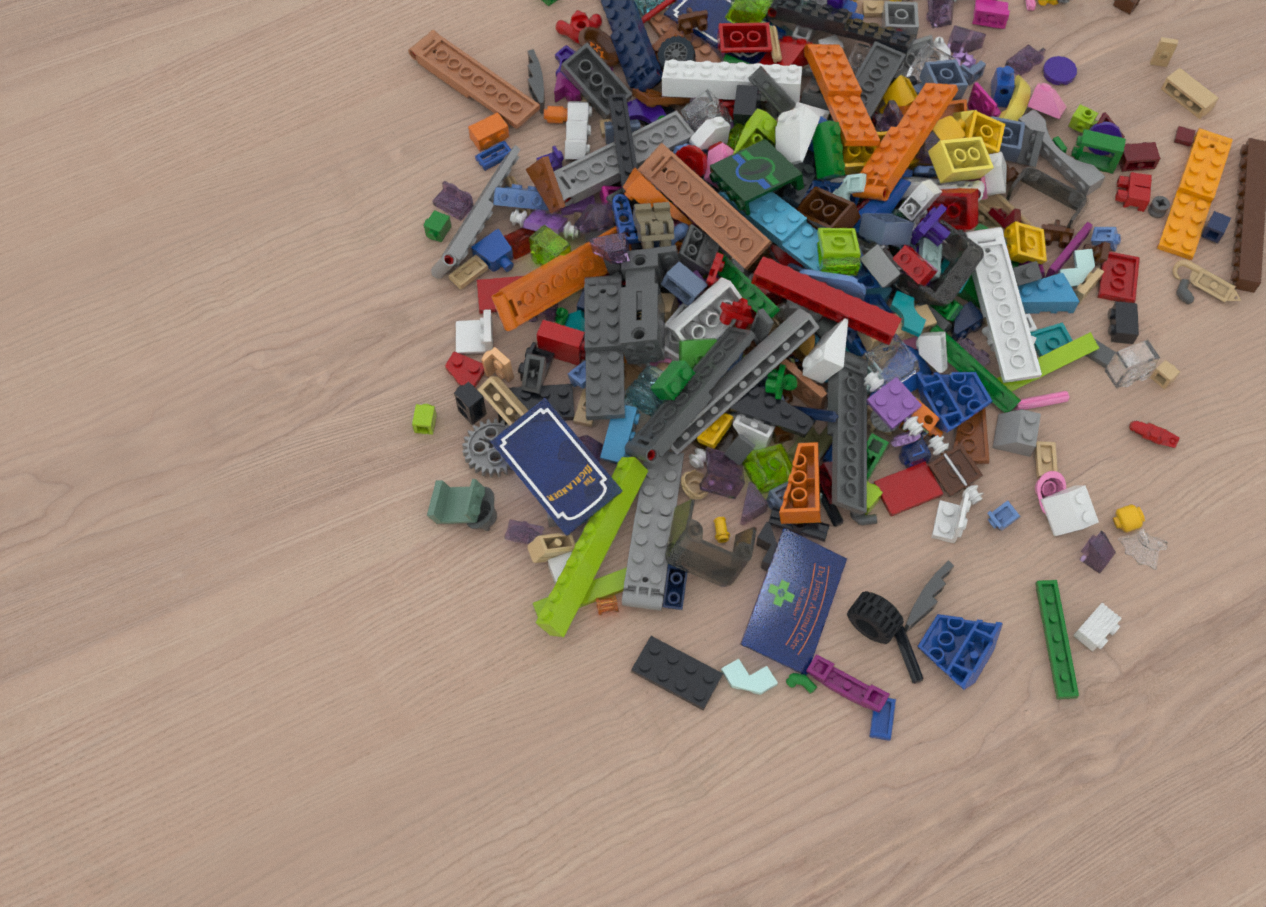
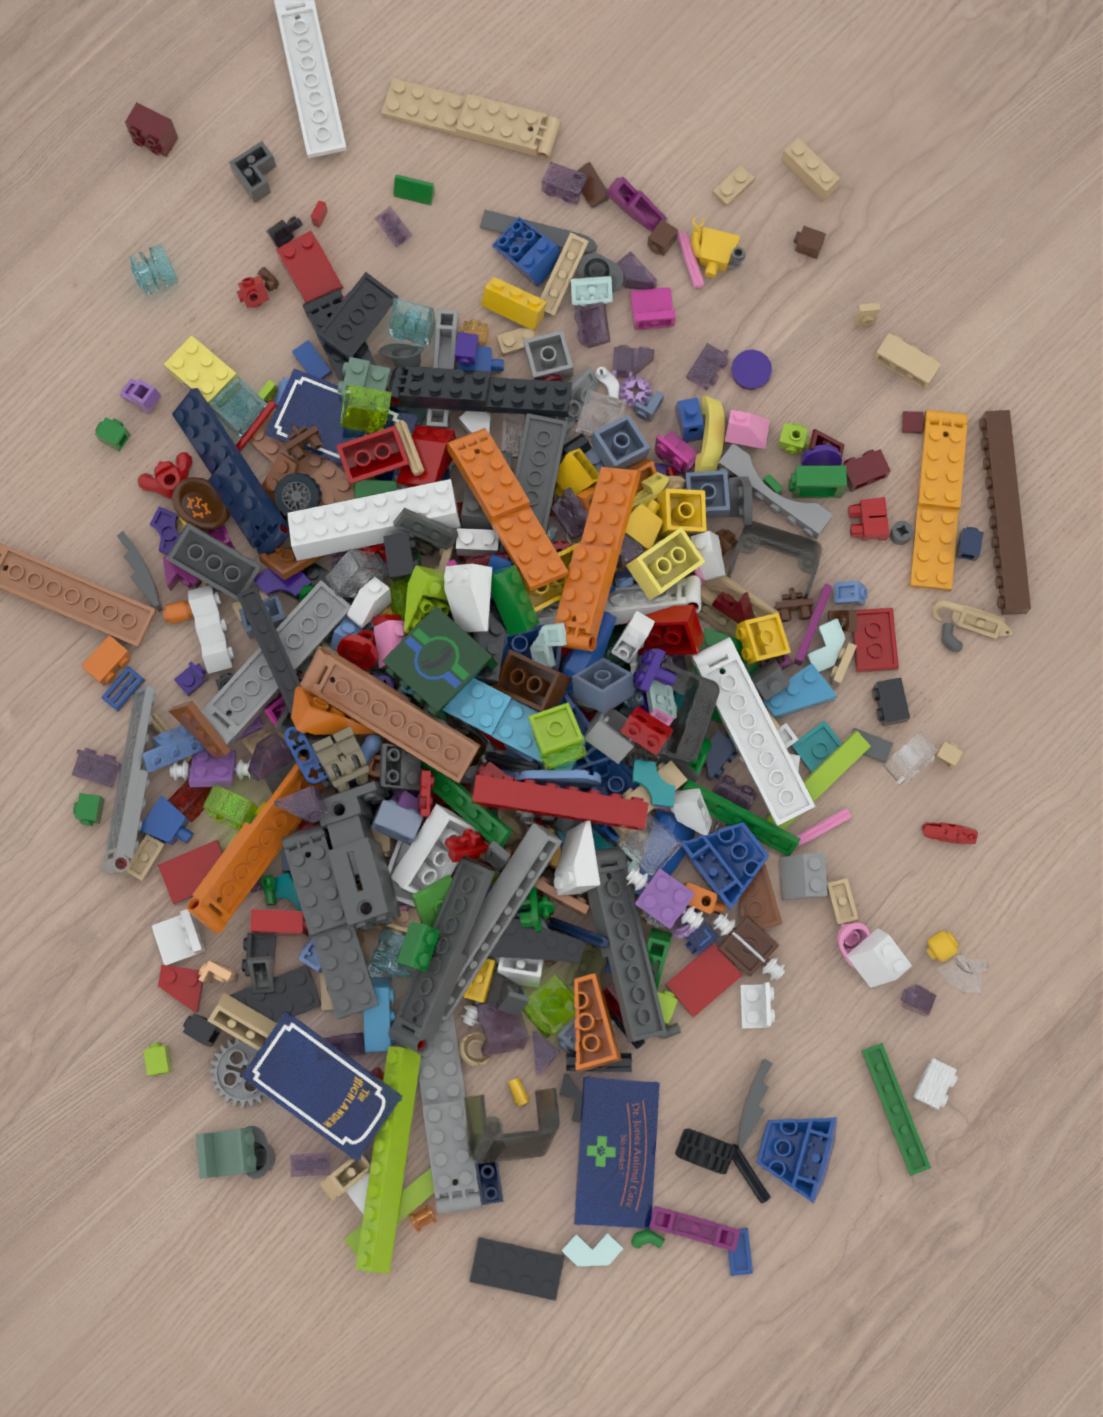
camera: 15 degrees left, 15 degrees up
(1003, 516) = (810, 984): medium blue bracket -> none

